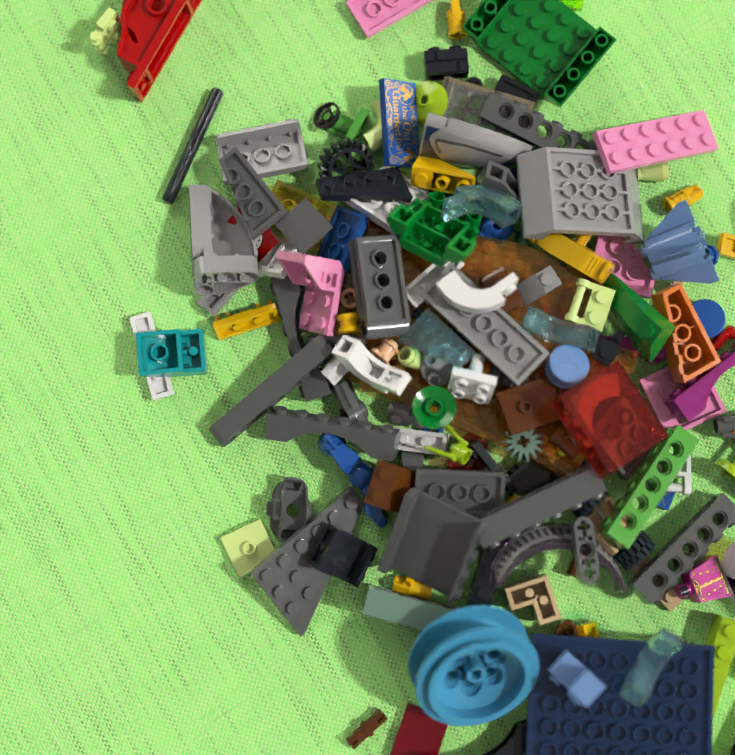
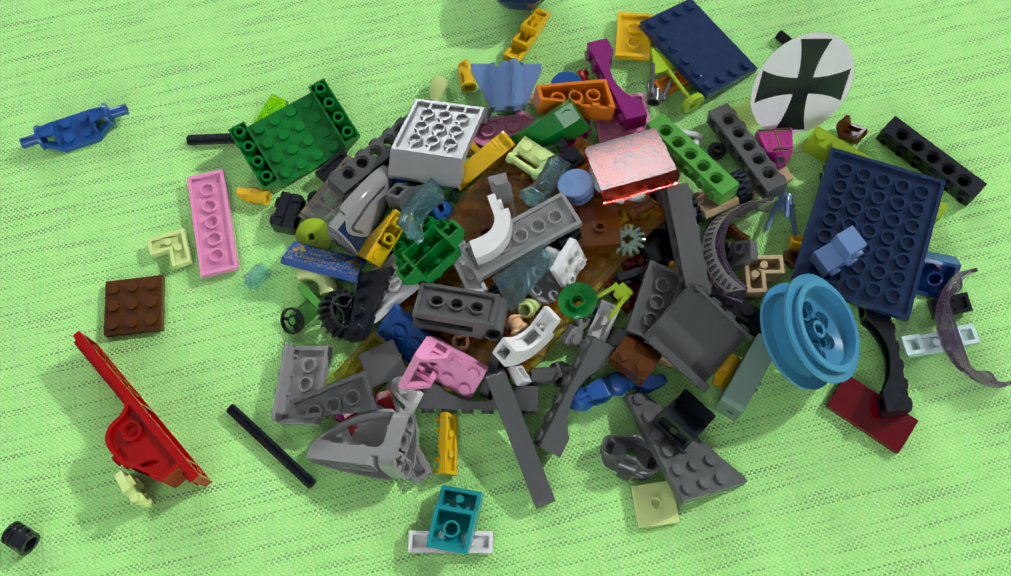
camera: 70 degrees left, 15 degrees down
(348, 323) = (482, 349): yellow wheel -> none
(363, 60) = (256, 276): none -> clear light blue brick
(366, 728) = (842, 448): reddish brown pin -> none
(503, 458) = (633, 262): none -> clear red wheel
(545, 568) = (741, 253): none -> dark grey wing
(588, 532) = (738, 212): dark grey beam -> none
(633, 609) = (785, 204): none -> medium blue plant
(648, 666) = (837, 196): clear light blue arch -> none
(655, 141) = (415, 78): bright pink plate -> none
(671, 515) = (714, 154): none -> black plate

